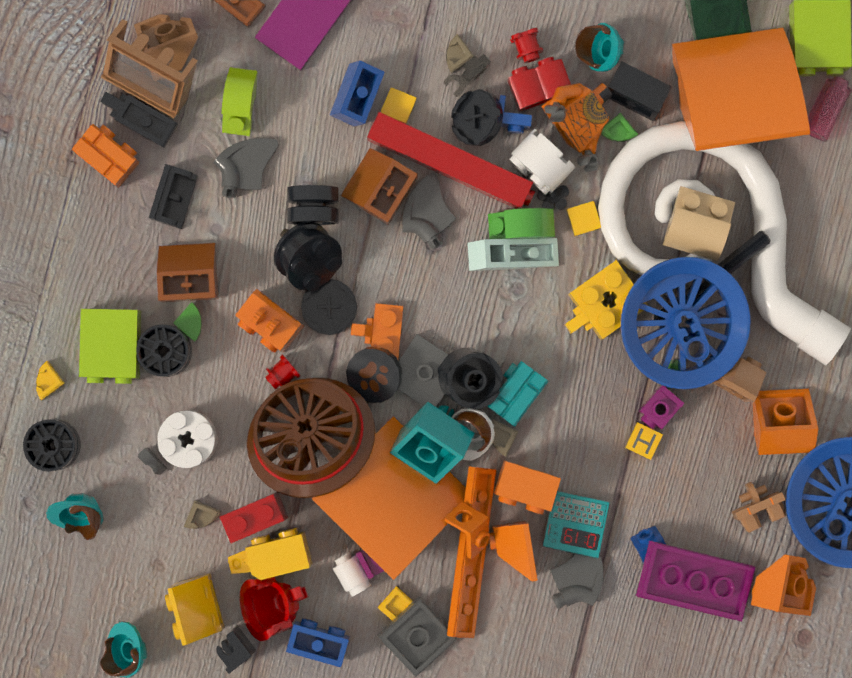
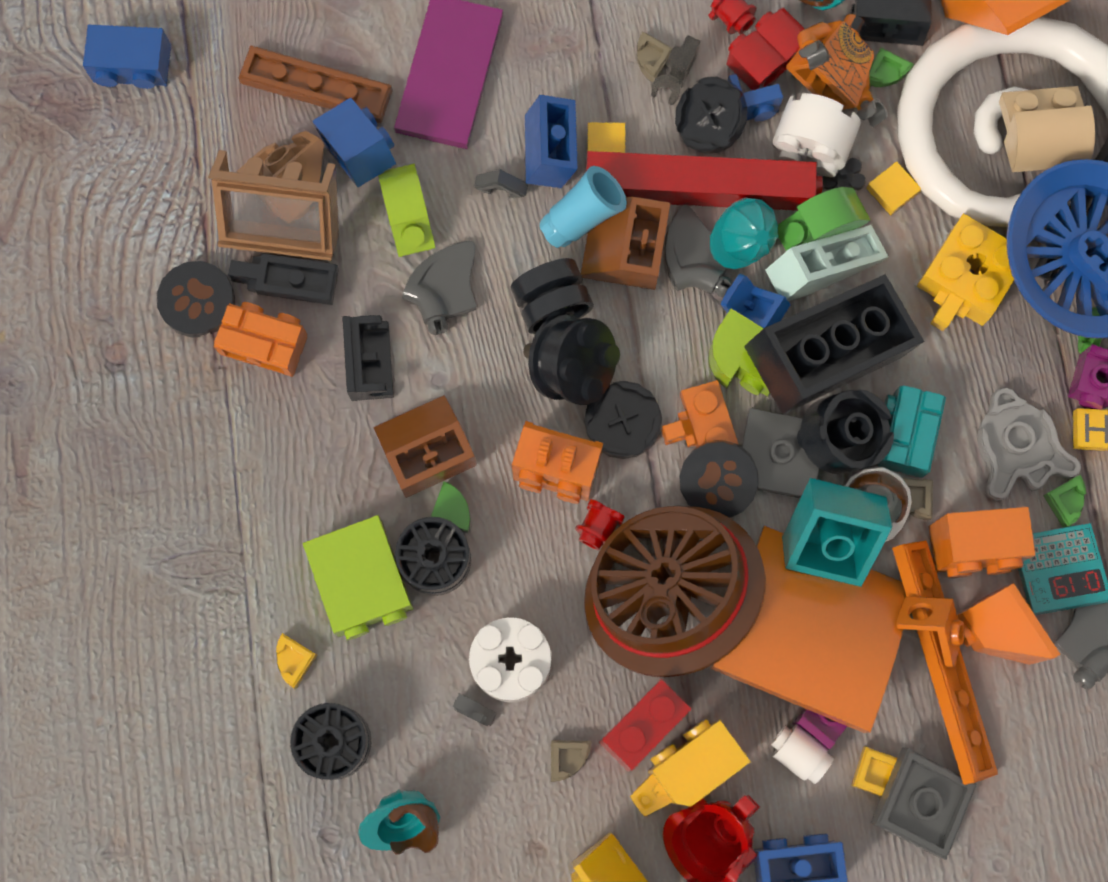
camera: 20 degrees left, 10 degrees down
(72, 106) = (194, 298): none -> black tile
(221, 40) = (355, 141): none -> blue brick
(313, 108) = (501, 180): none -> dark grey tile
(359, 152) = (583, 207): none -> medium azure plant
(419, 289) = (729, 357): none -> lime brick
(448, 265) = (755, 303): none -> blue bracket
(462, 212) = (744, 233): none -> teal piece
(486, 316) = (833, 343): none -> black brick
(590, 430) = (1020, 444): none -> light grey tile
(603, 481) = (1067, 501): none -> bright green tile

